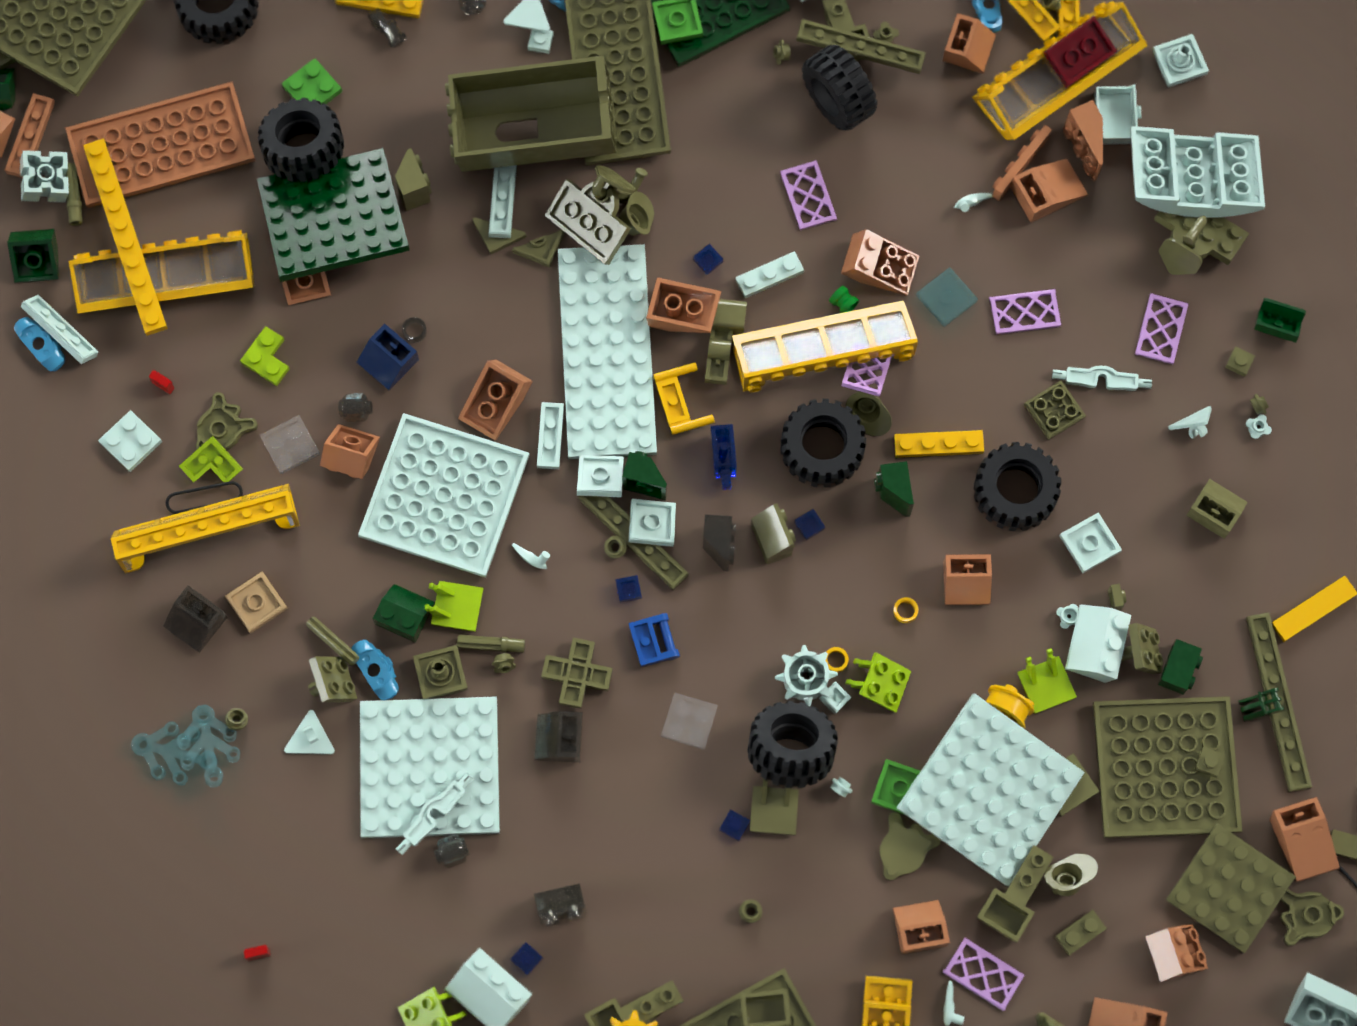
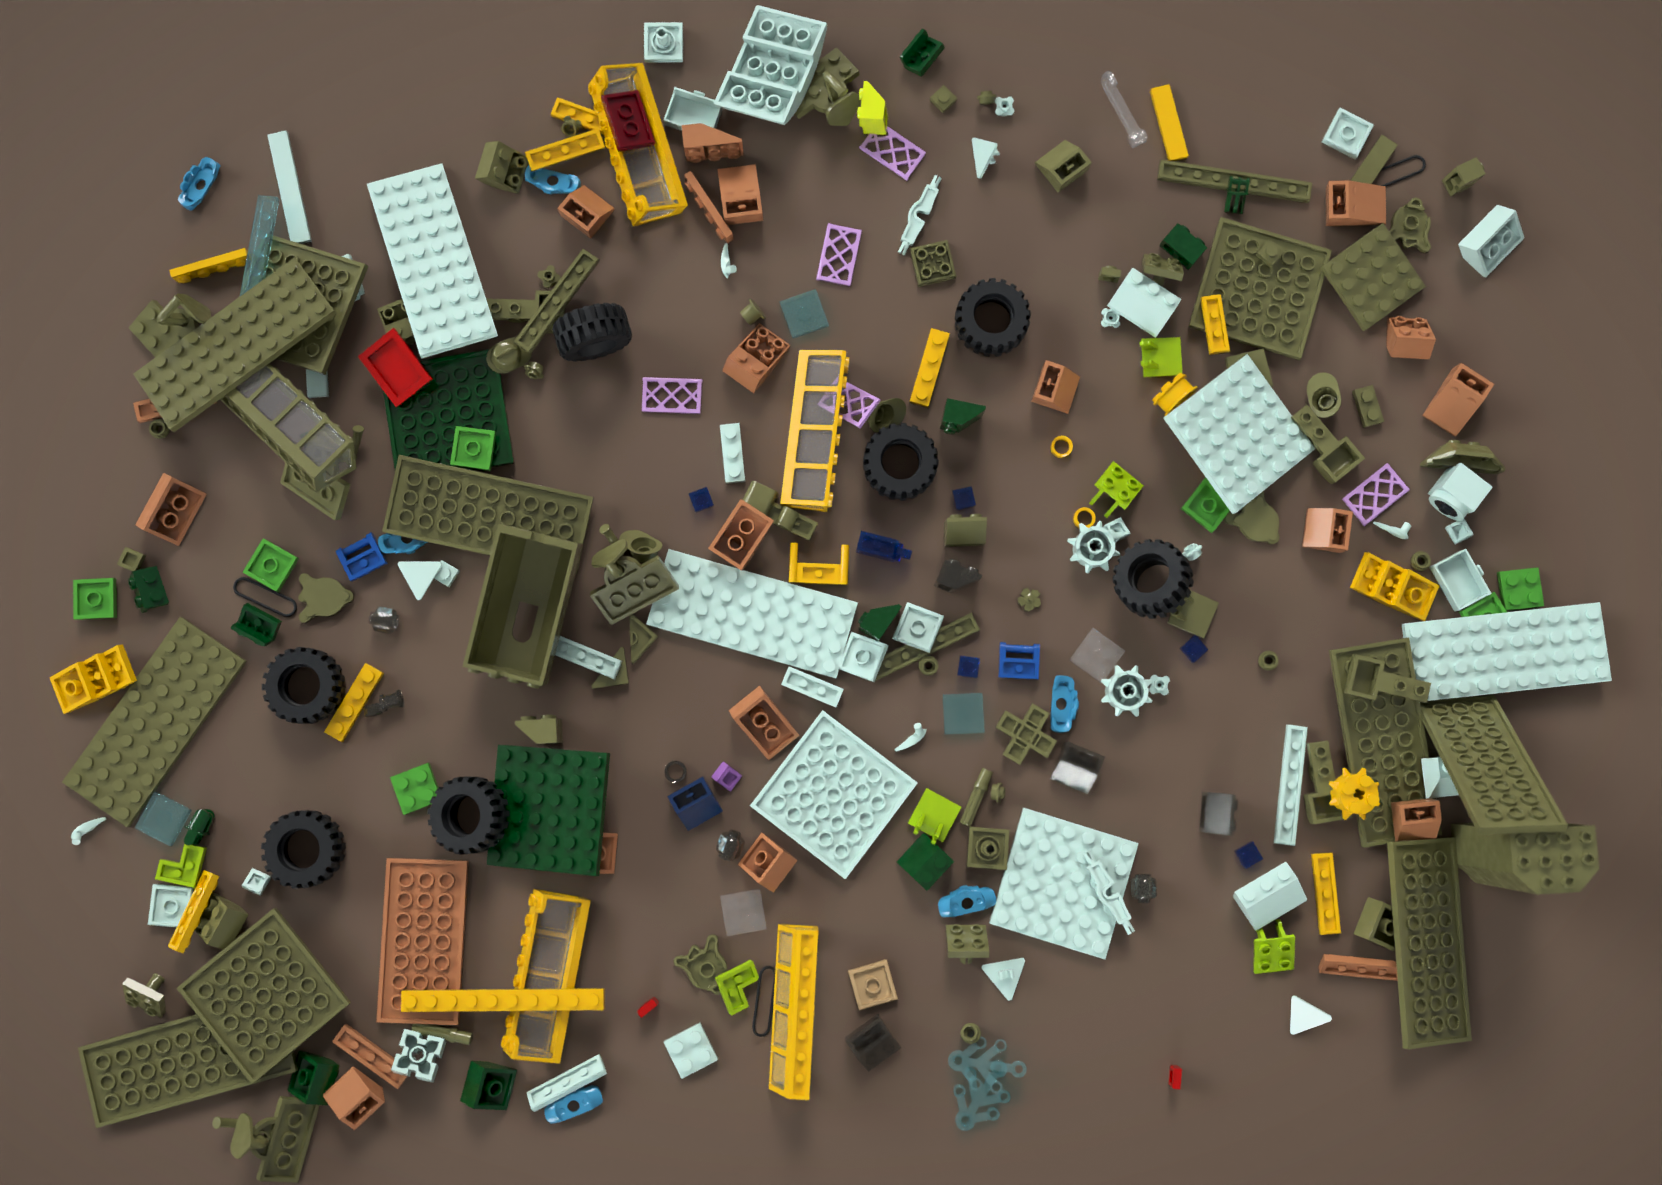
camera: 75 degrees left, 10 degrees up
(260, 357) = (655, 913): lime plate -> none
(332, 640) = (930, 930): olive axle -> none
(426, 382) = (726, 776): none -> medium lavender slope
(576, 601) = (963, 713): none -> clear light blue tile
(606, 705) = (1062, 719): none -> dark azure piece
(620, 981) = (1290, 785): none -> light aqua tile
(672, 755) = (1137, 687): none -> light aqua brick
(680, 805) = (1154, 685): none -> light aqua plate
(725, 631) = (1029, 599): none -> olive plant
(785, 21) = (507, 356): none -> olive piece
(843, 300) = (779, 399): green wheel -> none
(927, 243) = (752, 312): none -> olive piece
(1090, 542) = (1056, 277): light aqua plate -> none
(1104, 727) = (1215, 324): none -> yellow tile
(1190, 288) = (873, 111): none -> neon yellow slope
(1284, 577) = (1136, 136): none -> clear piece

